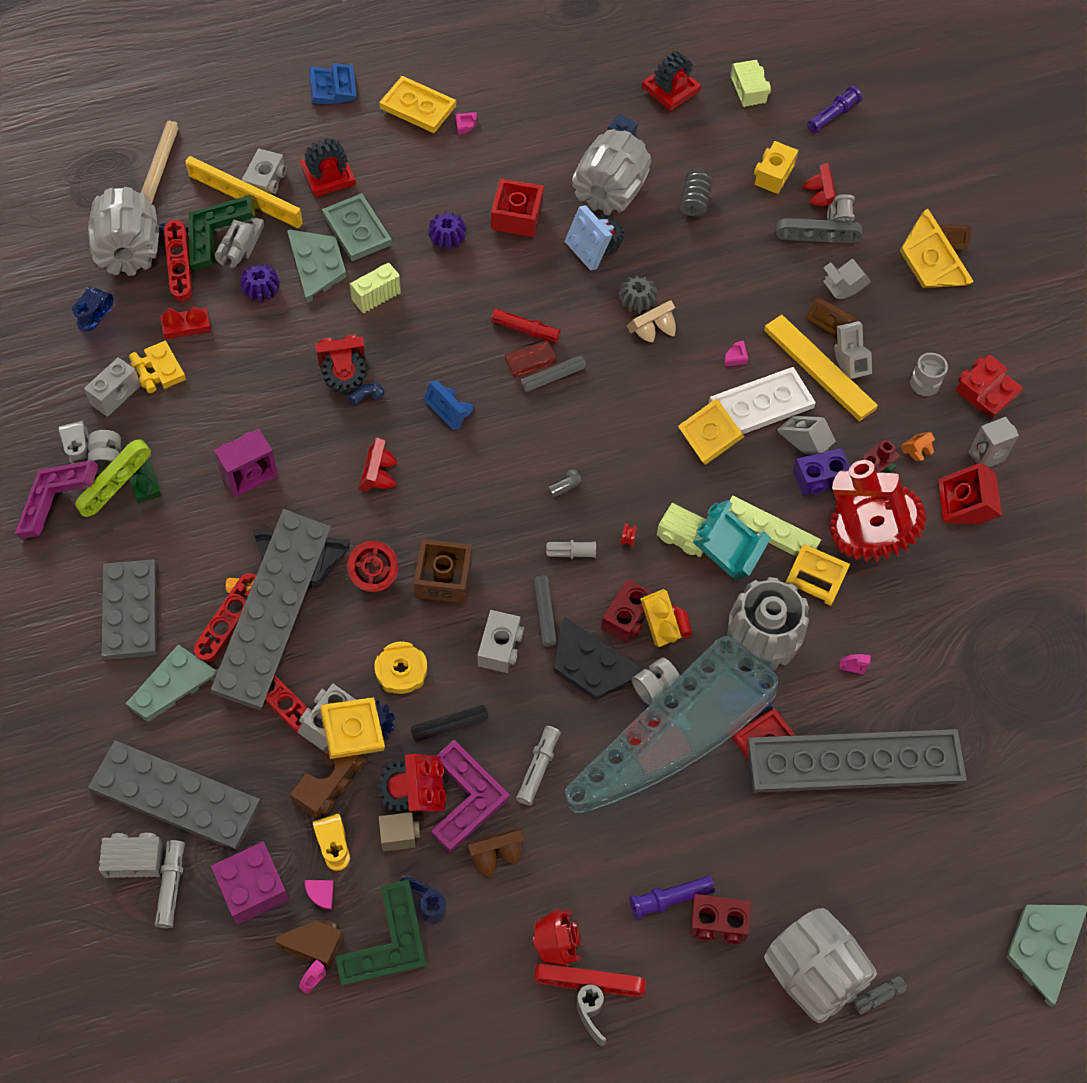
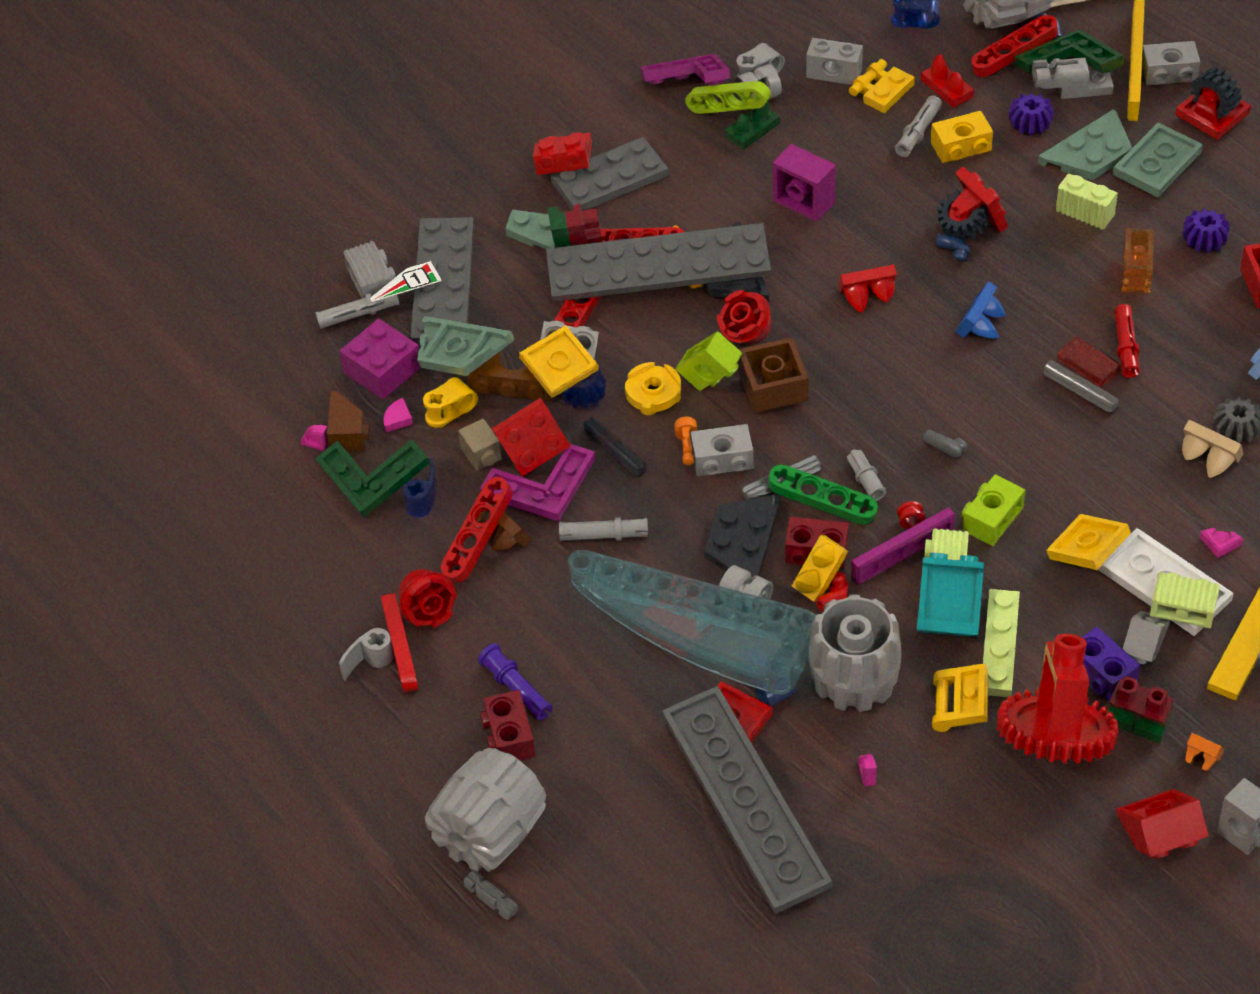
camera: 75 degrees right, 10 degrees down
(86, 634) = (562, 153): none -> red plate
(167, 820) = (408, 280): none -> sticker
(205, 659) = (574, 226): none -> dark red hips
(228, 367) = (915, 131): none -> light grey pin
(255, 337) = (961, 136): none -> yellow brick
(284, 807) = (458, 345): none -> sand green wing
(410, 611) = (709, 361): none -> lime brick
(458, 282) = (1137, 260): none -> clear orange brick
(461, 661) = (683, 429): none -> orange piece
(505, 865) = (481, 530): none -> red beam
(579, 585) = (820, 498): none -> green beam
(648, 466) = (993, 509): none -> lime brick
(657, 550) = (899, 547): none -> magenta tile
(796, 396) = (1184, 599): none -> yellowish green brick

